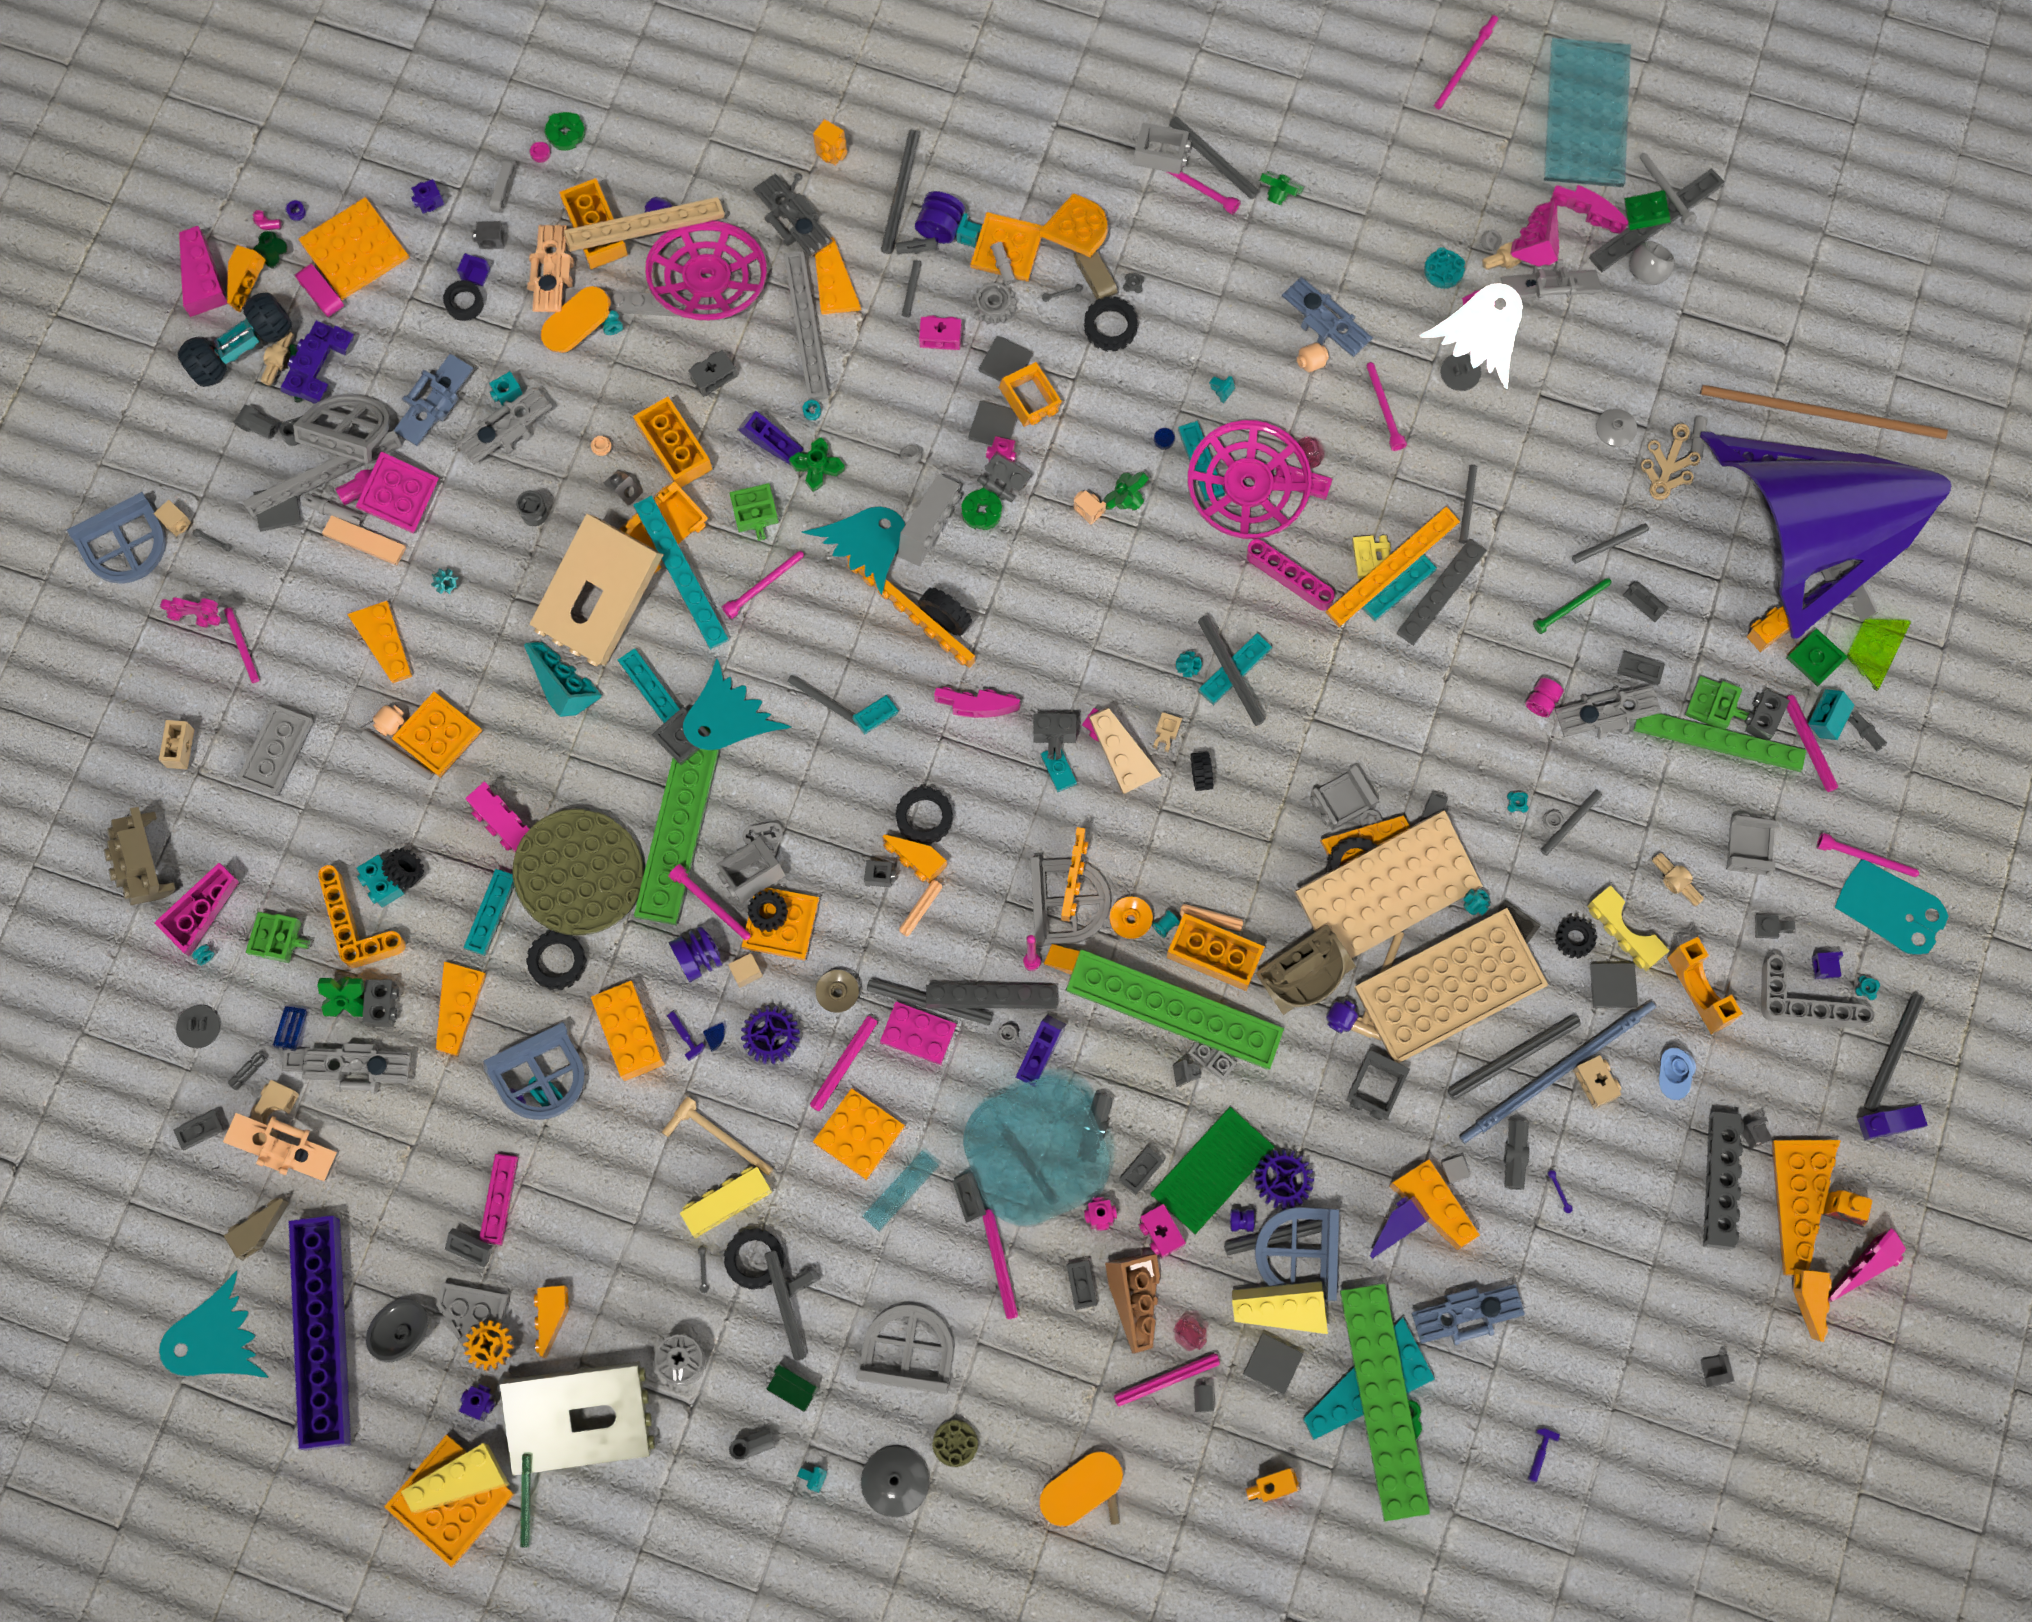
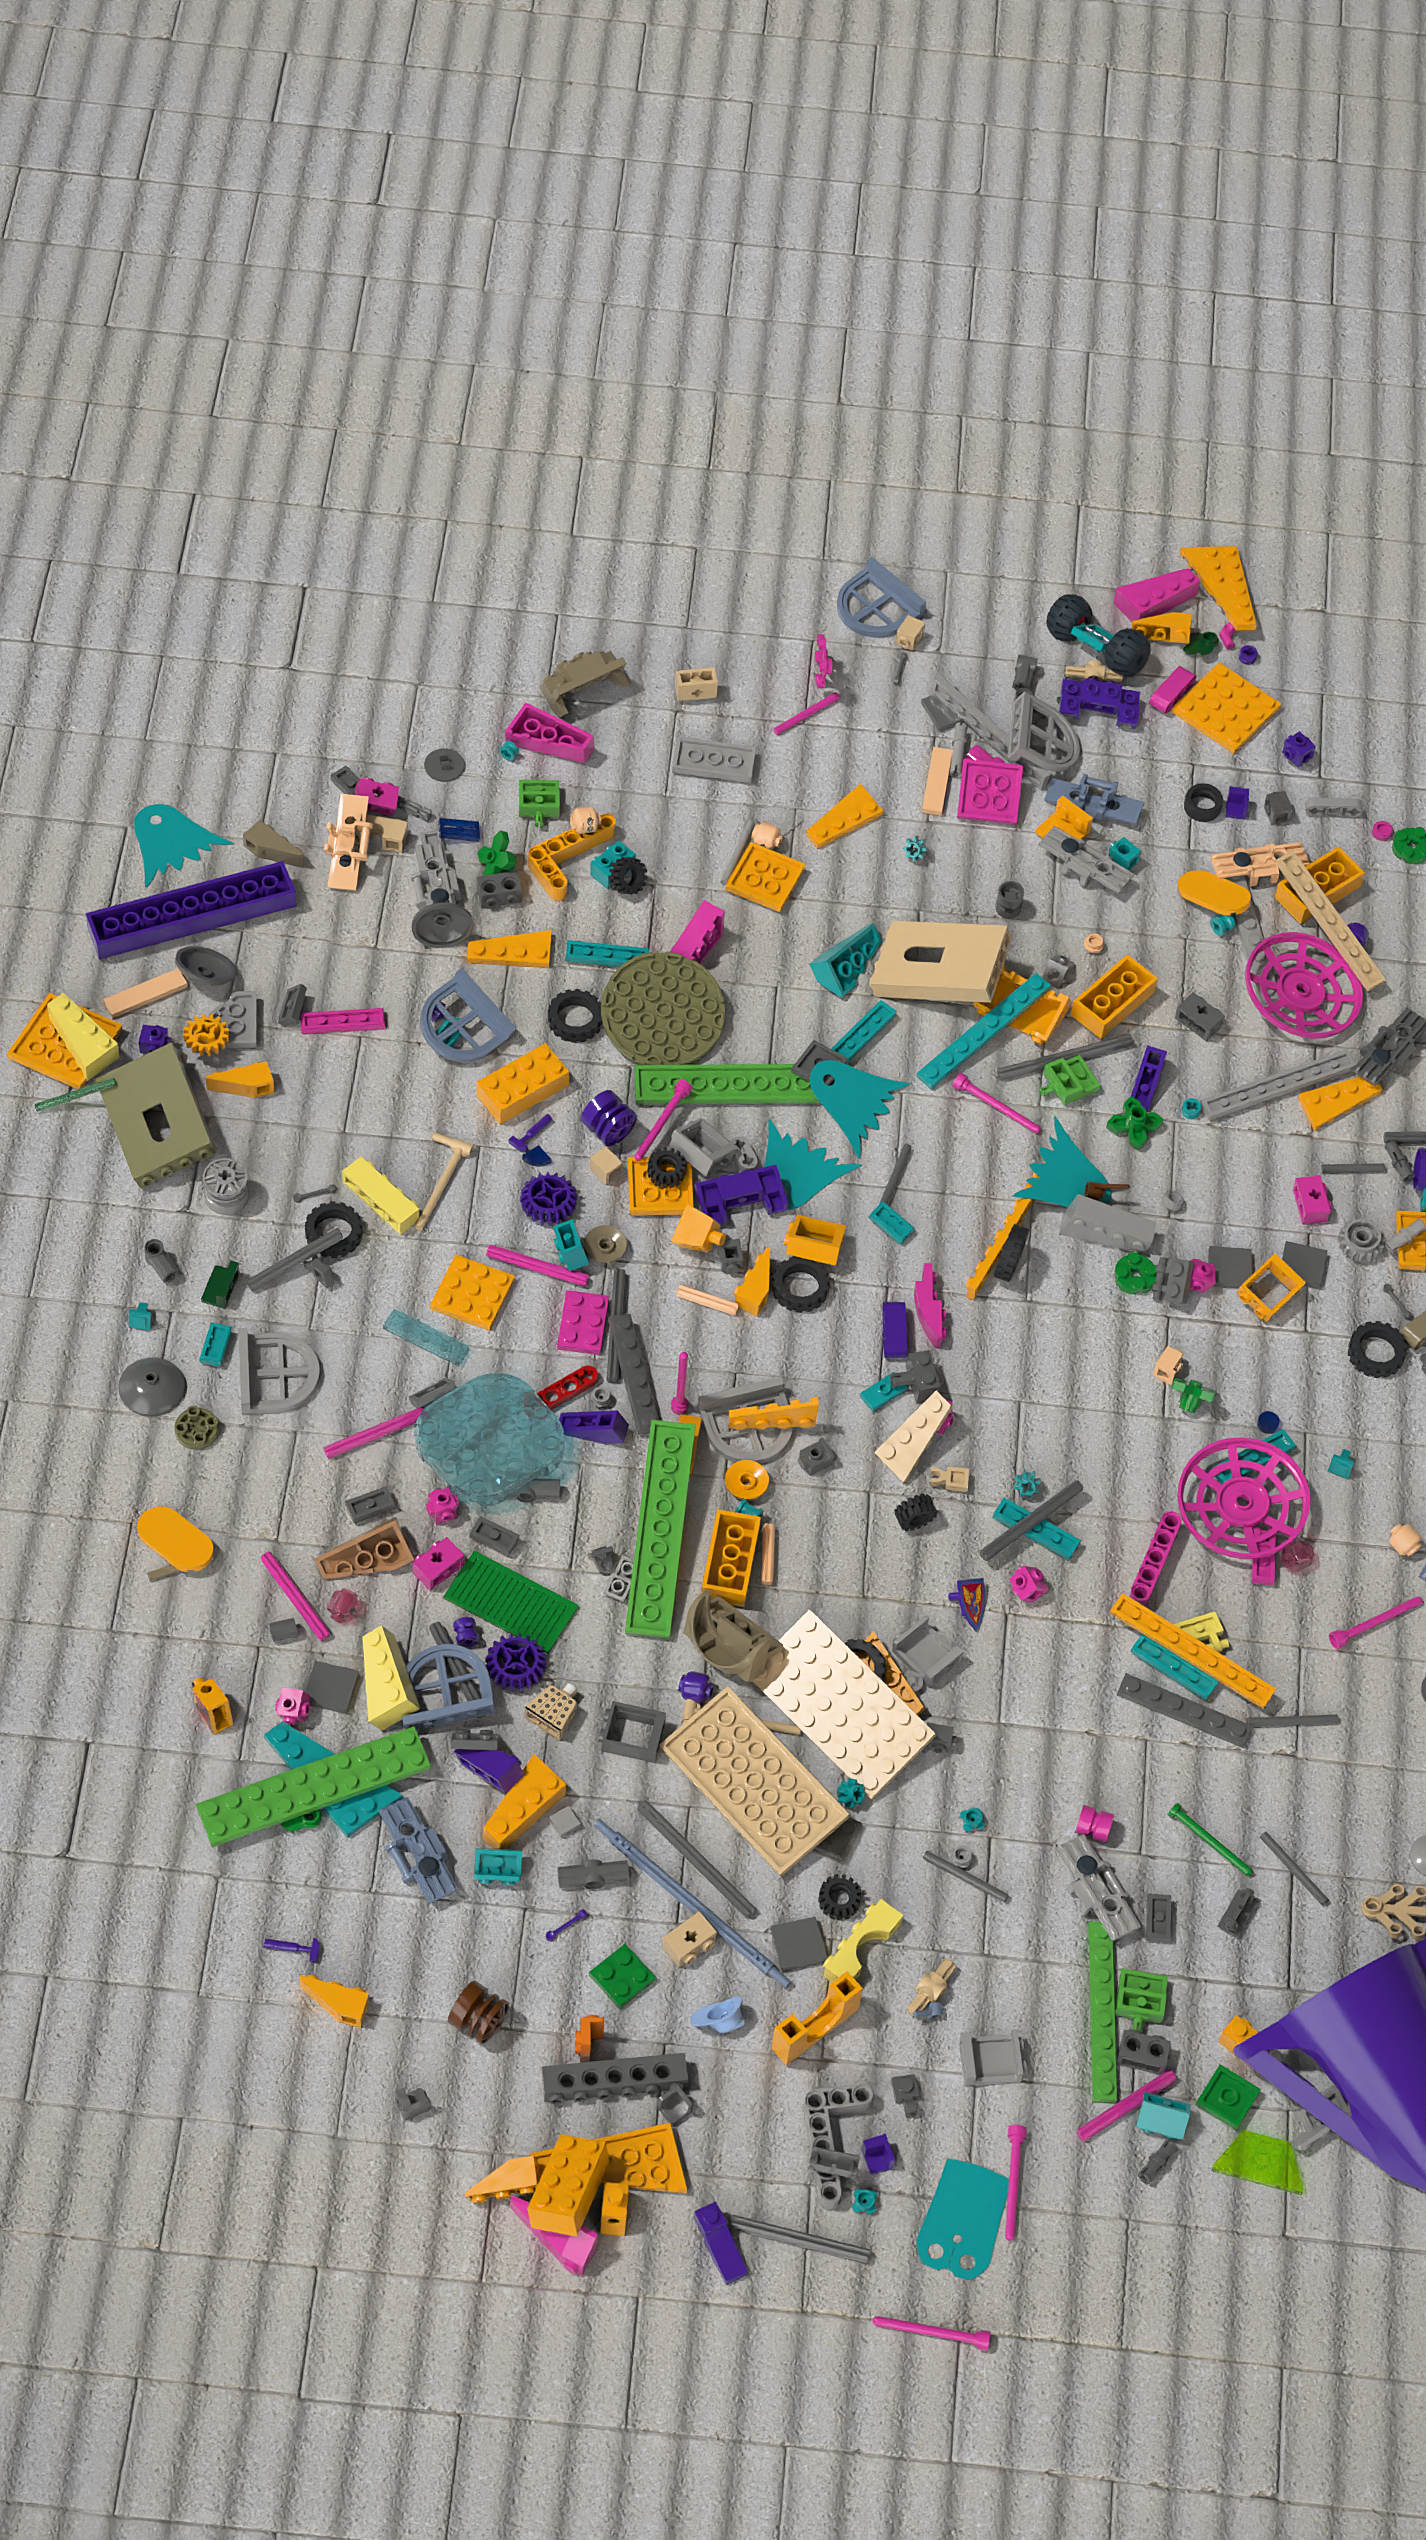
camera: 70 degrees right, 15 degrees down
(200, 205) = (1223, 578): none -> light orange wing
(229, 1093) = (386, 792): none -> dark pink brick
(327, 895) = (585, 820): none -> light nougat head
(408, 1403) = (145, 993): none -> light nougat tile
(416, 1069) = (442, 925): none -> dark grey dish
(451, 429) = (1067, 818): none -> light orange bracket
(725, 507) = (1085, 1052): none -> dark grey axle
(790, 789) = (801, 1171): none -> teal piece
(806, 855) = (740, 1190): none -> dark purple bracket
(835, 1024) = (570, 1244): none -> teal brick
(848, 897) = (697, 1231): none -> light orange torso
(863, 1406) = (215, 1344): none -> teal plate
(887, 520) = (1096, 1190): none -> reddish brown plant
(896, 795) = (811, 1248): none -> light orange window
(995, 741) = (894, 1329): none -> dark purple beam
(996, 1070) = (575, 1378): none -> red beam
(1117, 839) = (822, 1460): none -> dark grey brick
(1293, 1405) = (293, 1705): none -> dark pink brick
(1294, 690) = (1028, 1583): none -> dark pink brick
(1300, 747) = (972, 1600): none -> shield
(1340, 1154) = (553, 1710): none -> tan torso
(1365, 1236) = (478, 1741): none -> dark grey plate
(1495, 1242) = (498, 1865): none -> teal bracket
(1610, 1417) = (341, 2002): none -> light orange slope
(1619, 1151) = (622, 1976): none -> green plate
(1646, 1290) = (477, 2012): none -> reddish brown wheel
(1686, 1199) = (590, 2029): none -> orange bracket
(1699, 882) = (933, 2011): none -> sand blue hand
(1840, 1244) = (568, 2185): none -> light orange brick
(1843, 1013) = (834, 2162): none -> dark grey hinge
(2007, 921) = (980, 2339): none -> dark pink piece

